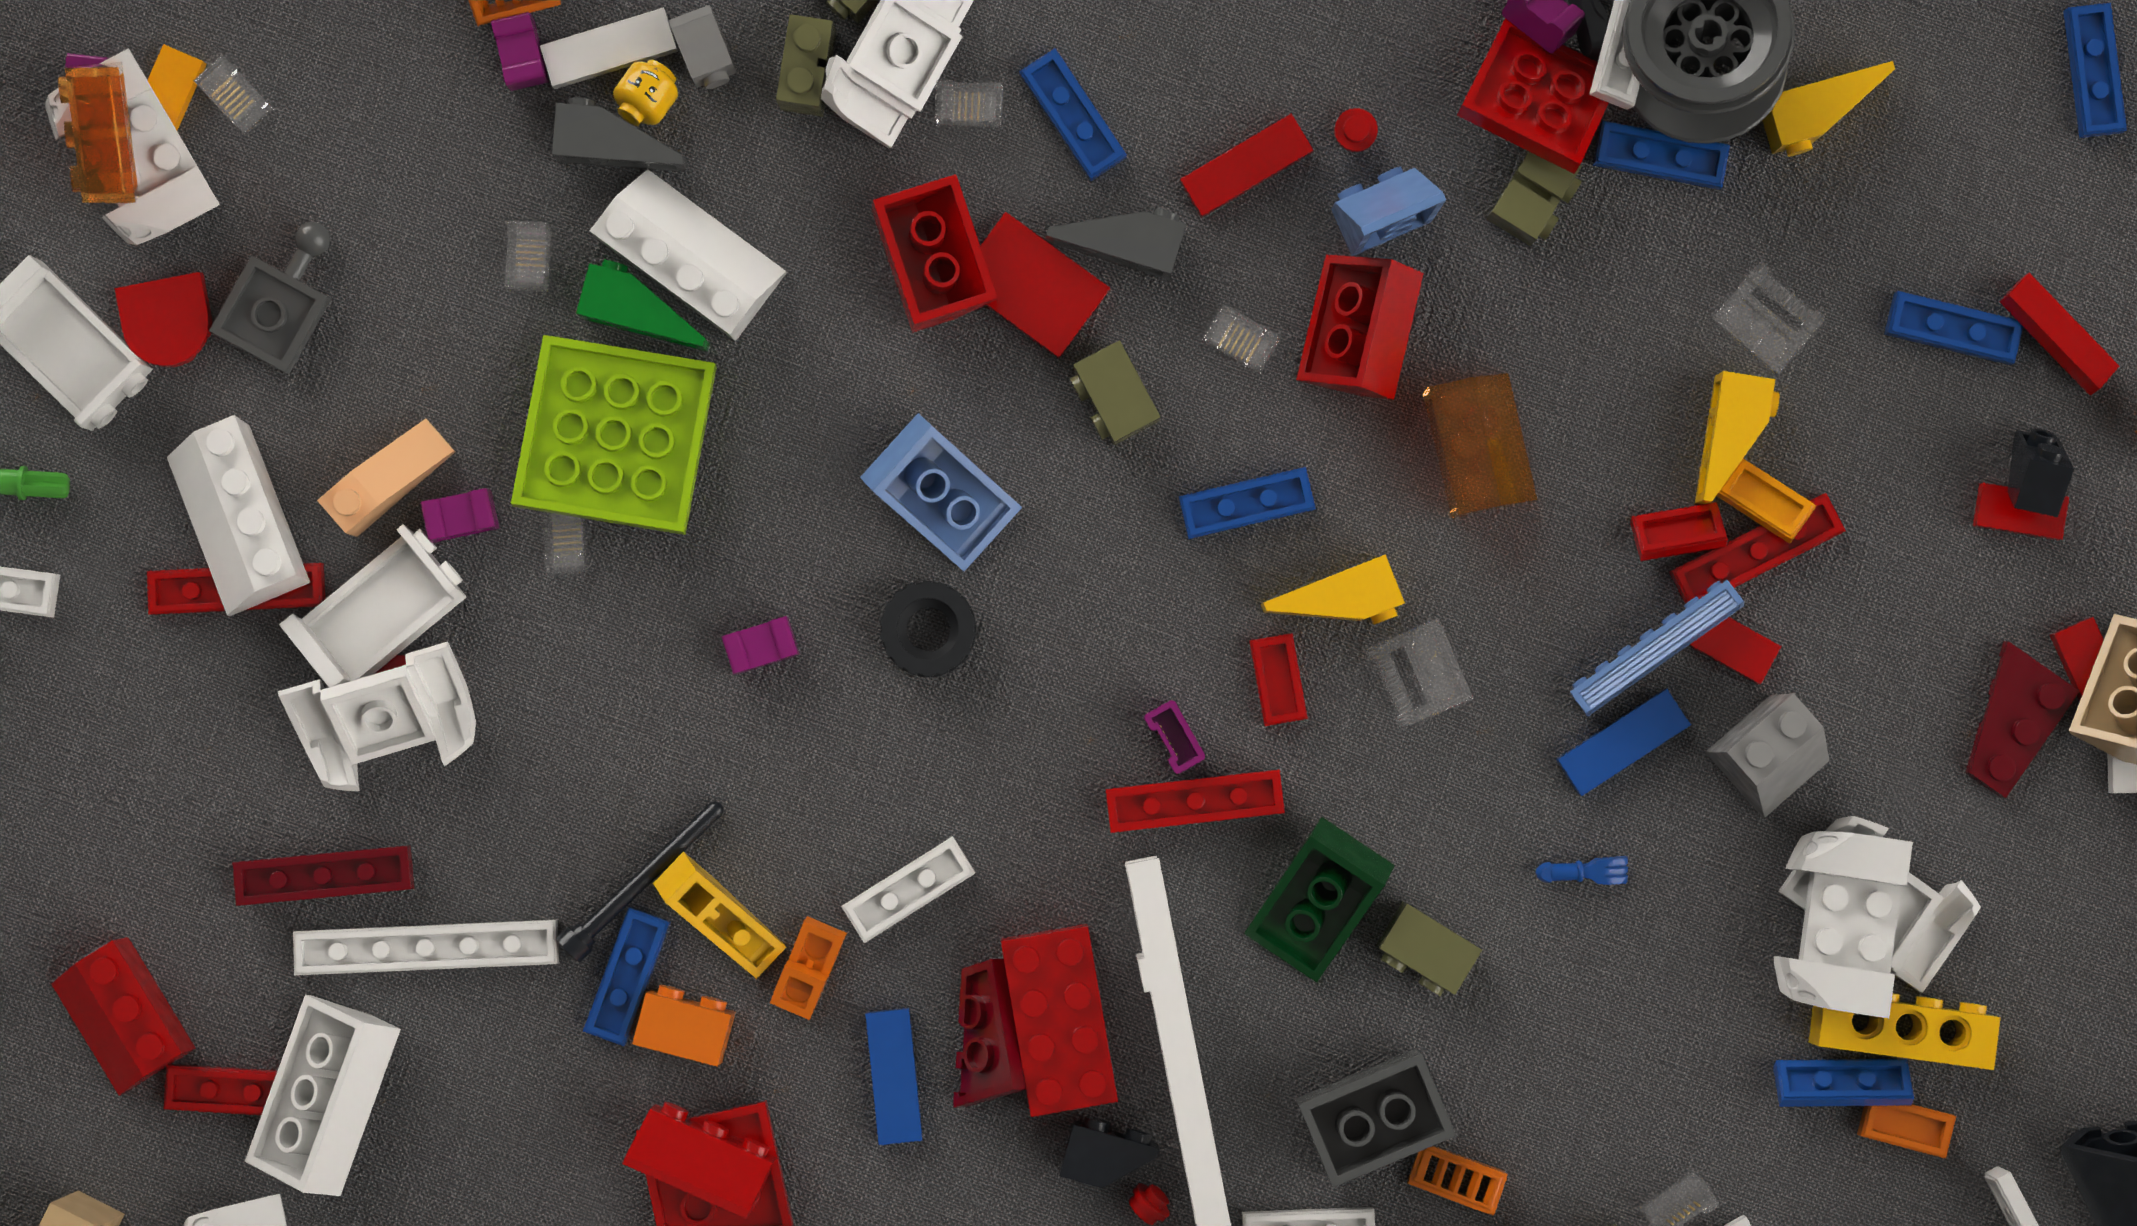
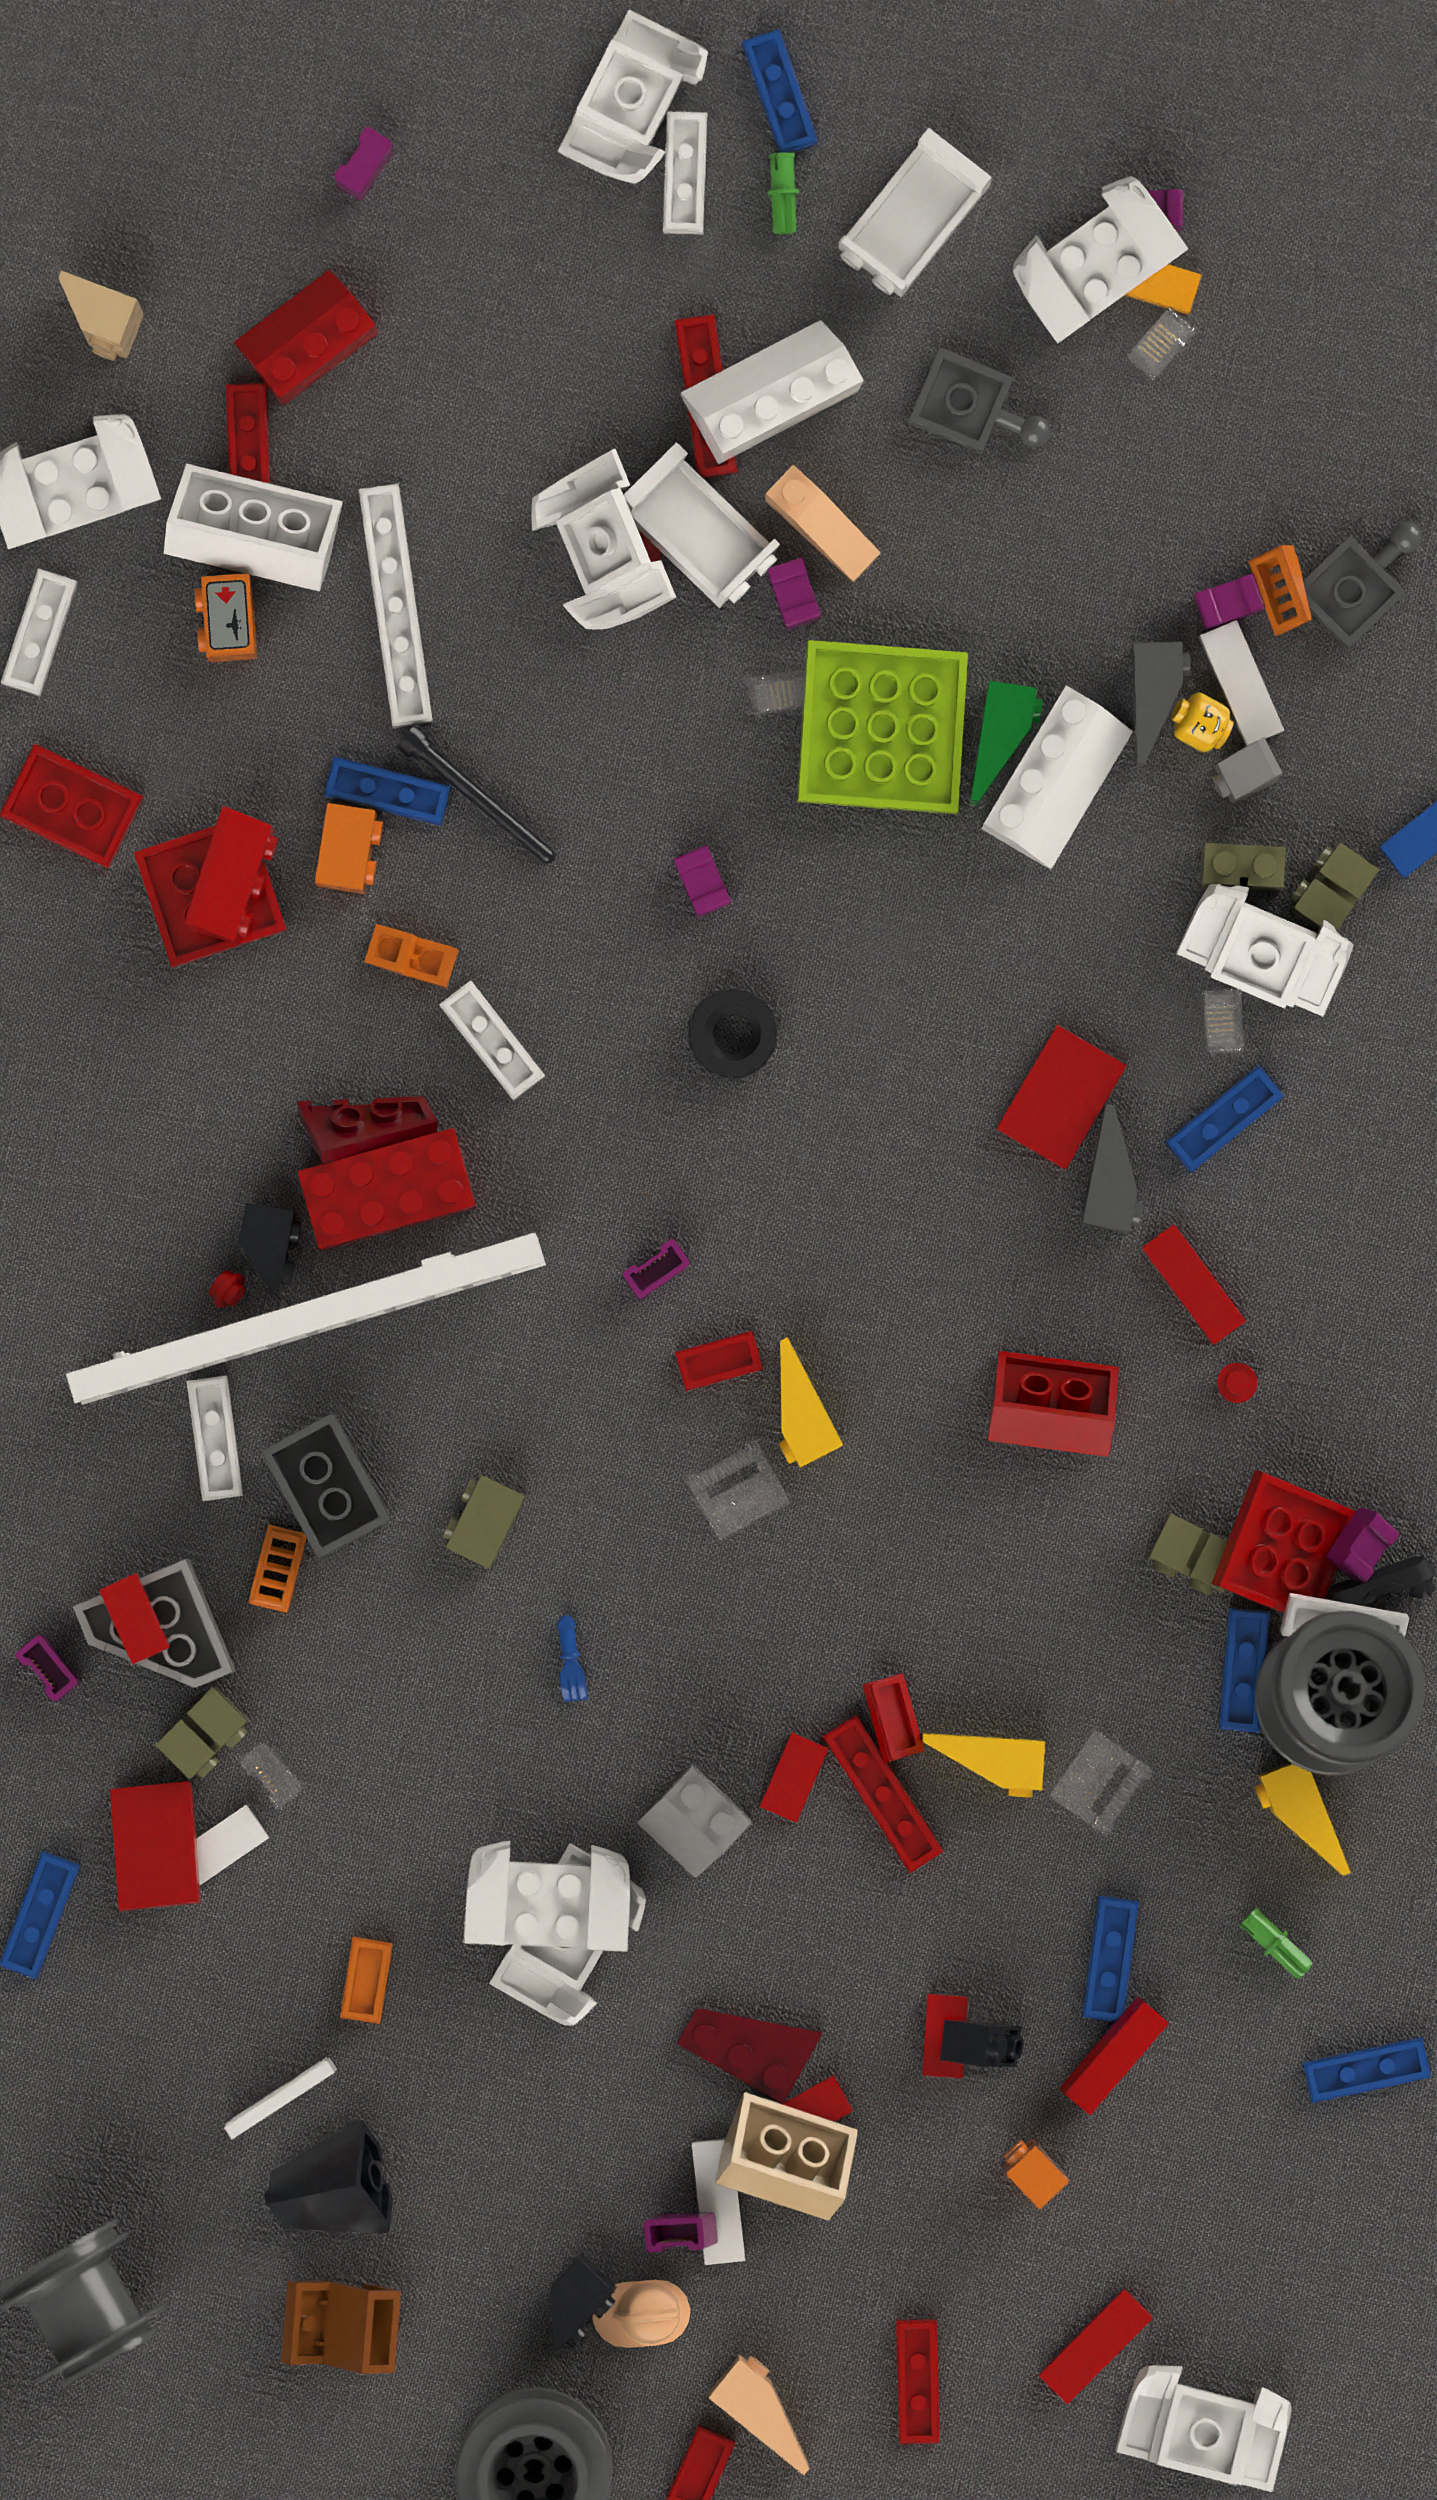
camera: 85 degrees right, 0 degrees up
(99, 133) = (1105, 234): clear orange slope -> none
(166, 318) = (947, 305): red tile -> none
(323, 875) = (452, 505): dark red plate -> none
(418, 1132) = (228, 617): none -> brick
(528, 256) = (1039, 630): clear piece -> none
(718, 915) = (451, 869): yellow slope -> none
(894, 1076) = (320, 1044): blue tile -> none
(933, 252) = (1079, 1002): red slope -> none
(940, 492) = (859, 1031): medium blue slope -> none
(1115, 393) = (967, 1183): olive piece -> none
(1195, 801) = (599, 1294): red plate -> none
(1241, 338) = (1030, 1295): clear piece -> none
(1247, 503) = (879, 1316): blue tile -> none
(1319, 899) = (520, 1417): dark green slope -> none
(1387, 209) = (1163, 1414): medium blue slope -> none
(1479, 444) = (955, 1527): clear orange slope -> none
(1623, 742) = (693, 1685): blue tile -> none
(1656, 647) = (783, 1705): medium blue piece -> none
(1766, 501) = (930, 1795): light orange tile -> none
(1843, 1082) = (400, 1916): blue tile -> none
(1955, 150) = (1276, 1943): none -> bright green axle
(1971, 1047) = (442, 2030): yellow brick -> none

